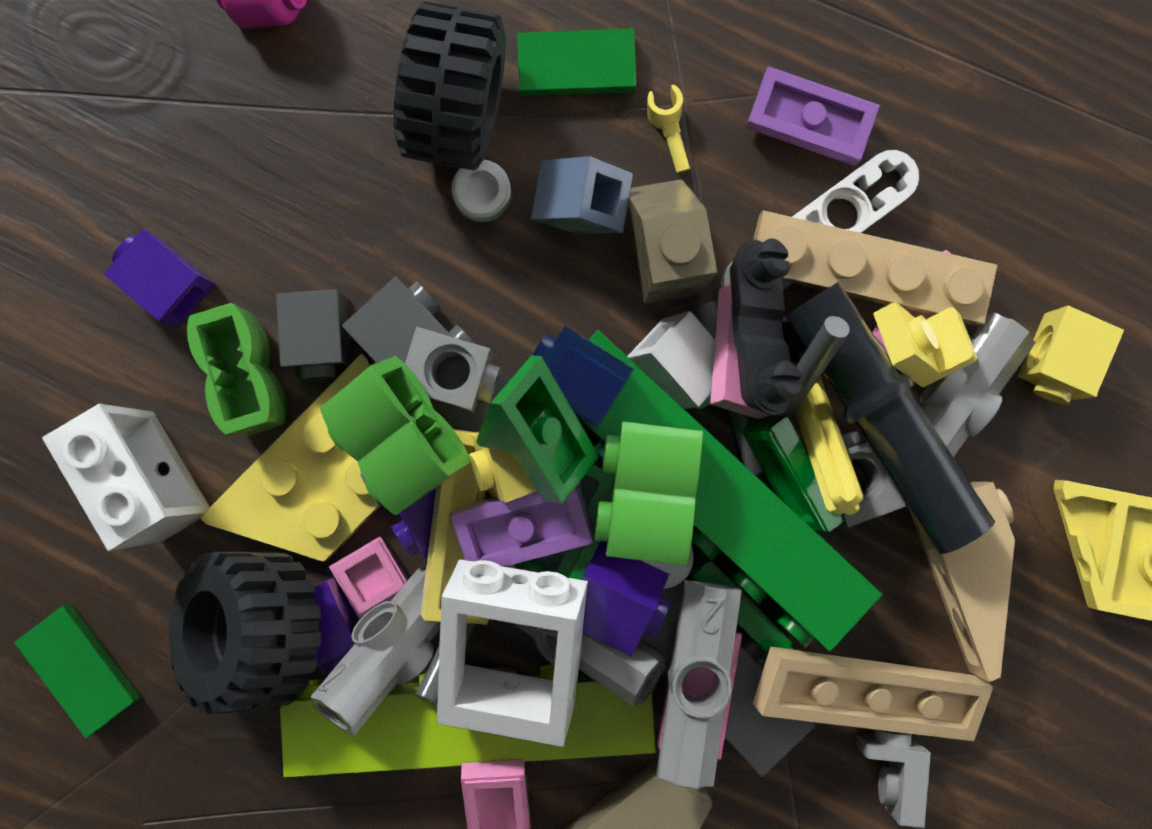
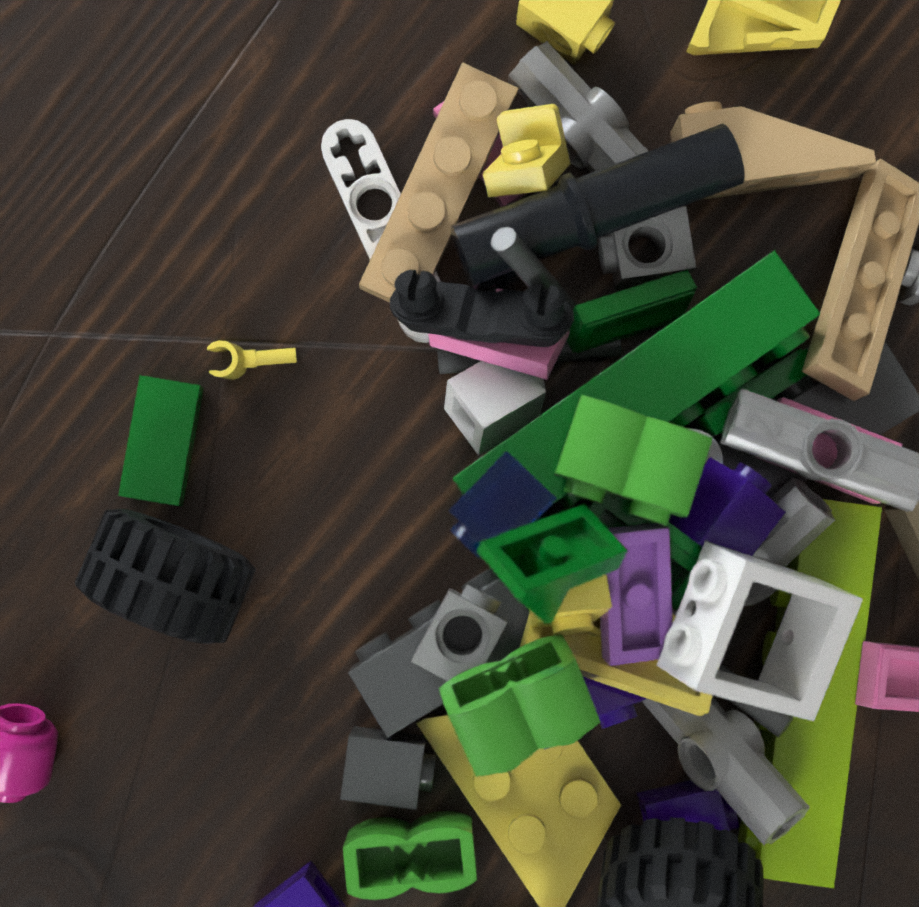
camera: 75 degrees left, 0 degrees up
(370, 575) = (644, 759): bright pink tile -> none
(483, 192) = (277, 565): white tile -> none
(582, 195) = (304, 464): sand blue brick -> none
(670, 241) = (366, 384): dark tan slope -> none
(812, 116) = (269, 213): medium lavender plate -> none
(828, 453) = (620, 272): light yellow axle -> none

